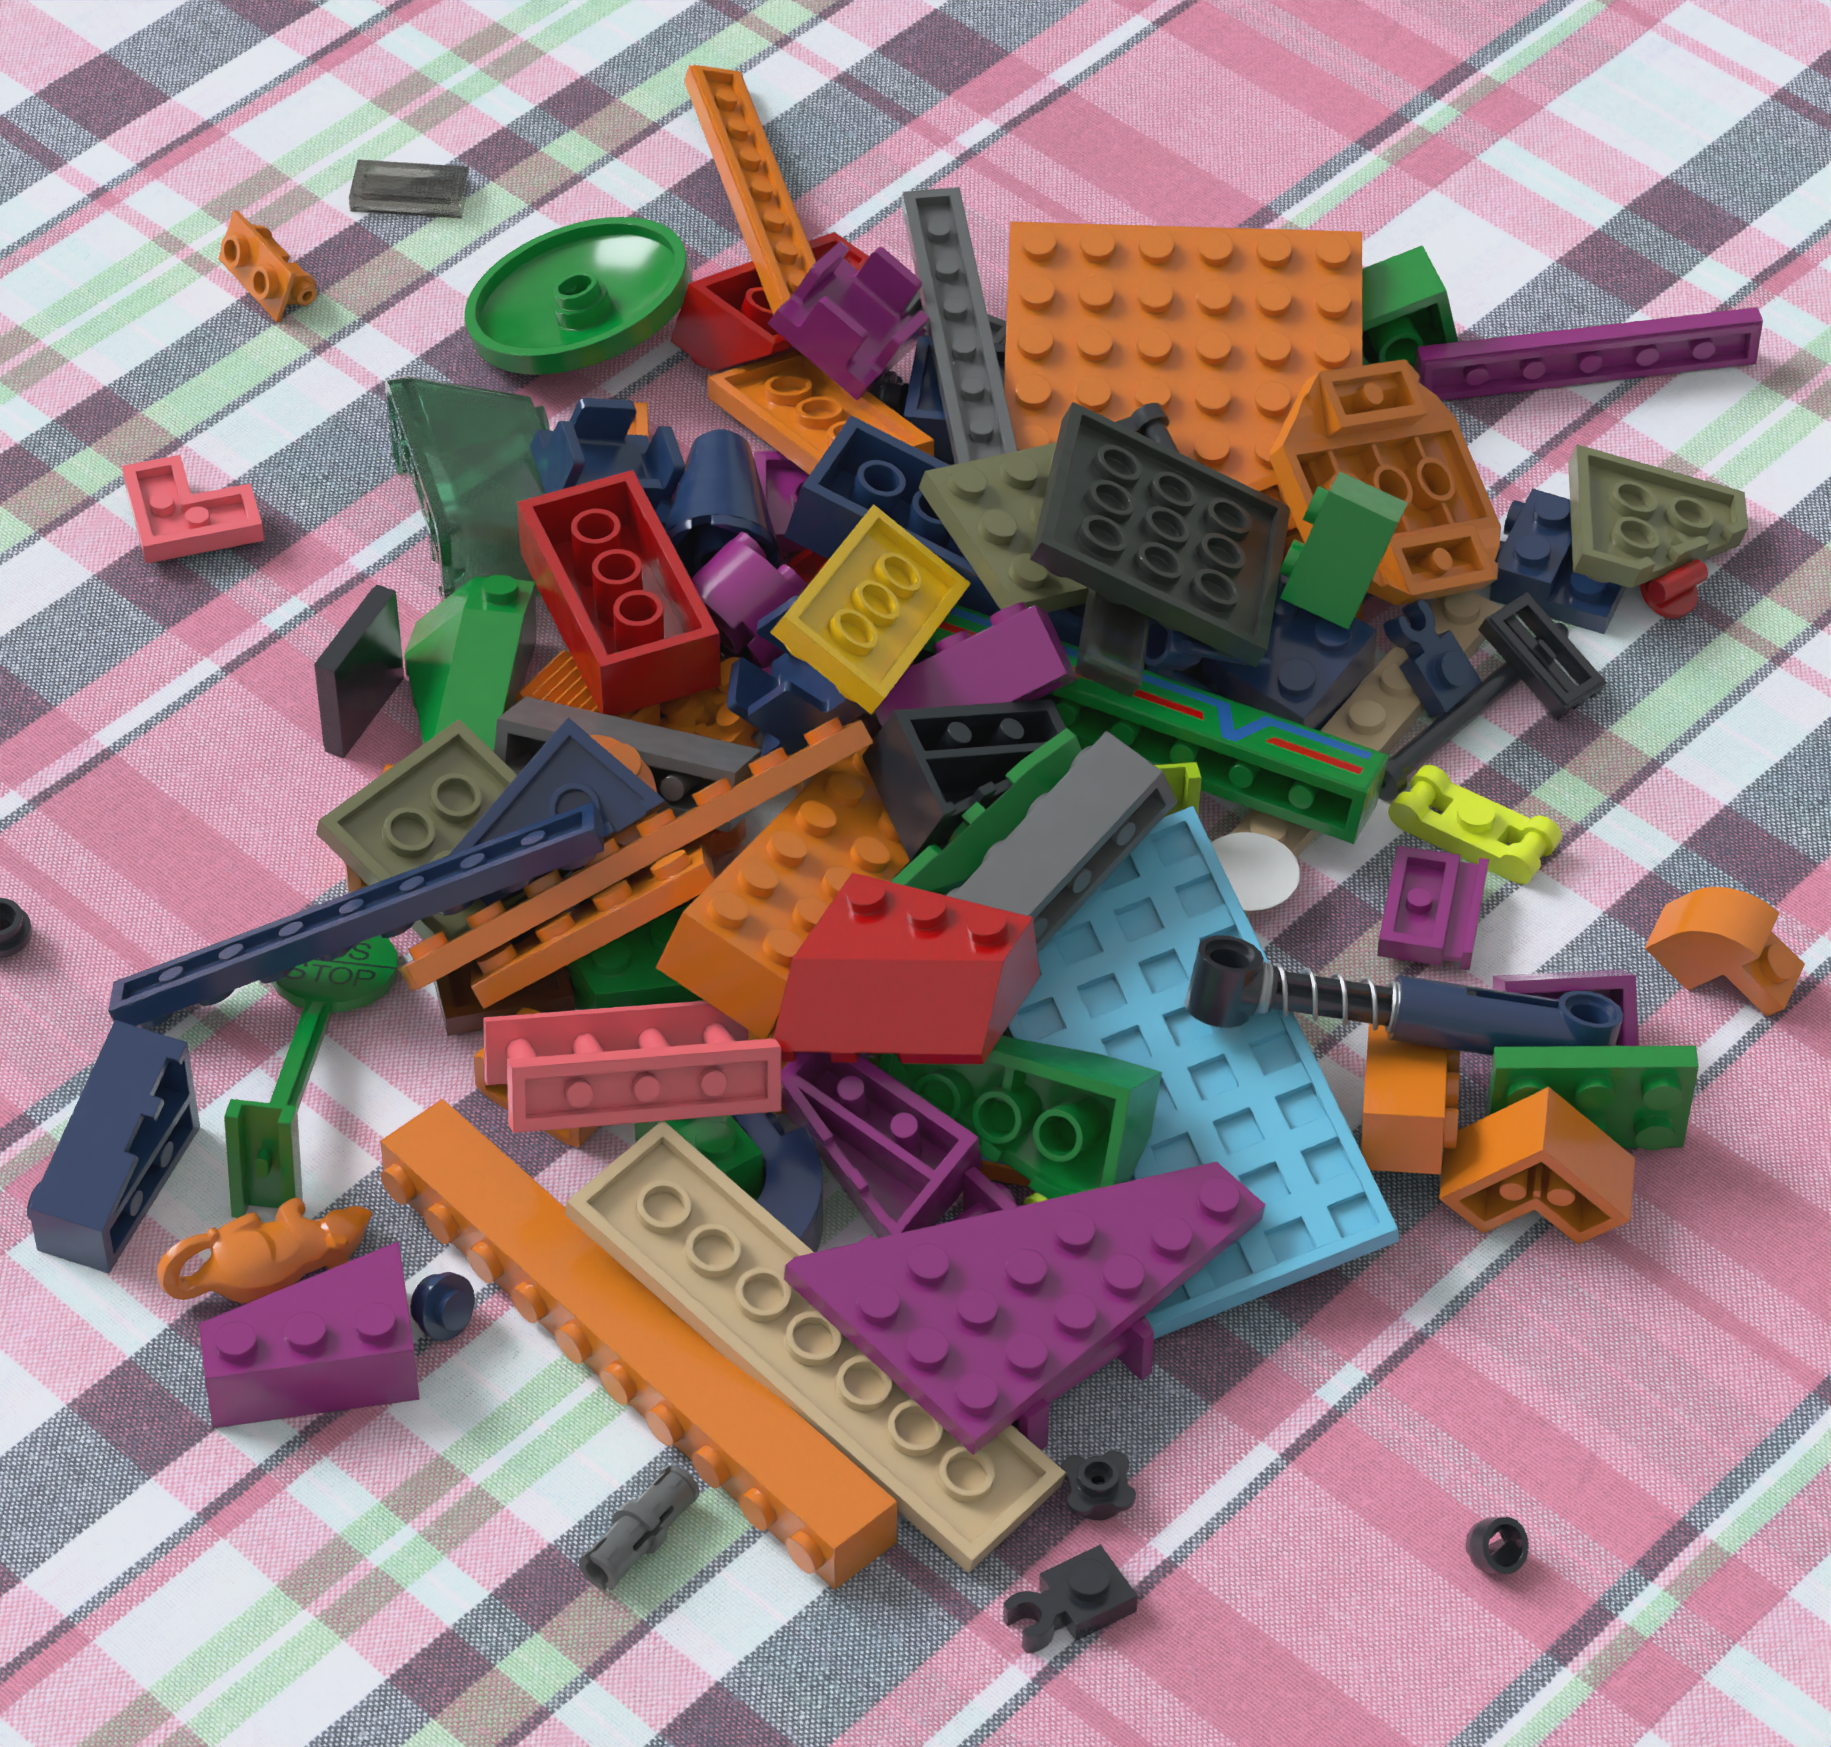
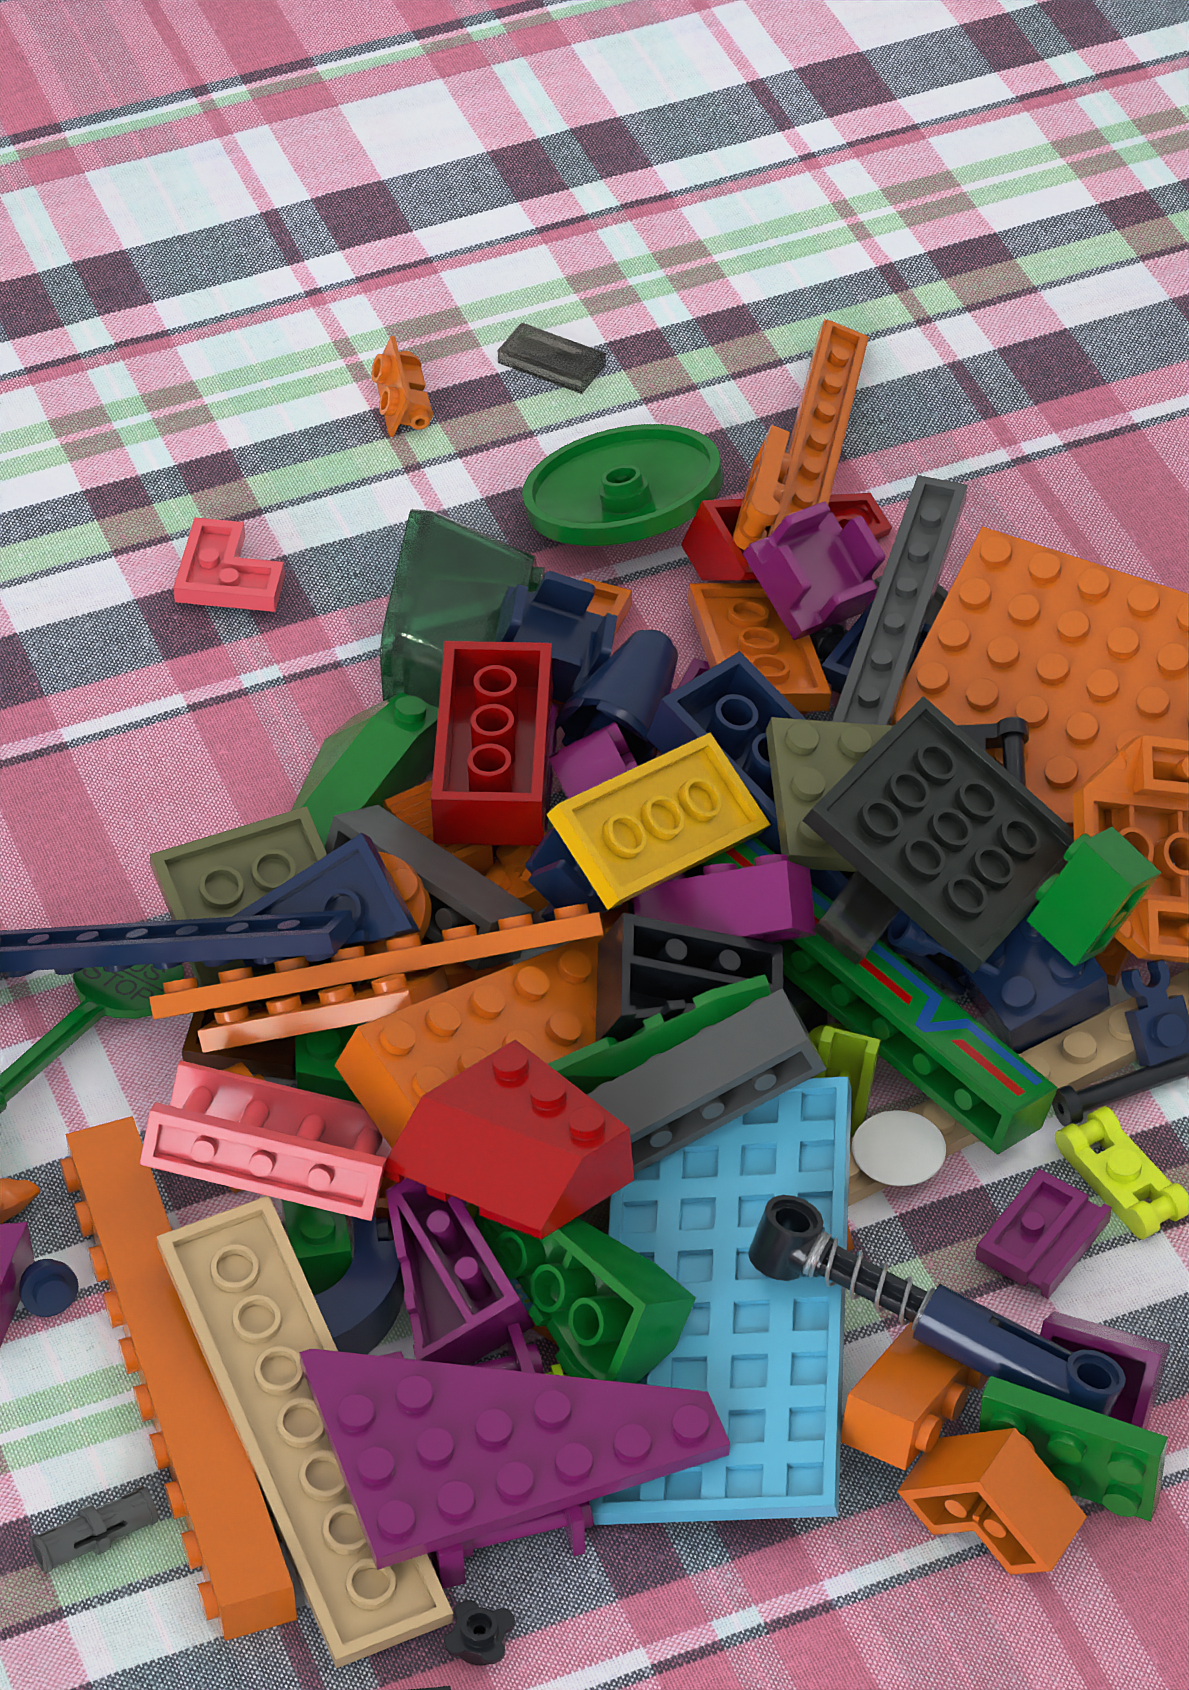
camera: 25 degrees right, 0 degrees up
(359, 670) = (271, 741): black tile -> none
(747, 253) = (763, 489): none -> orange plate

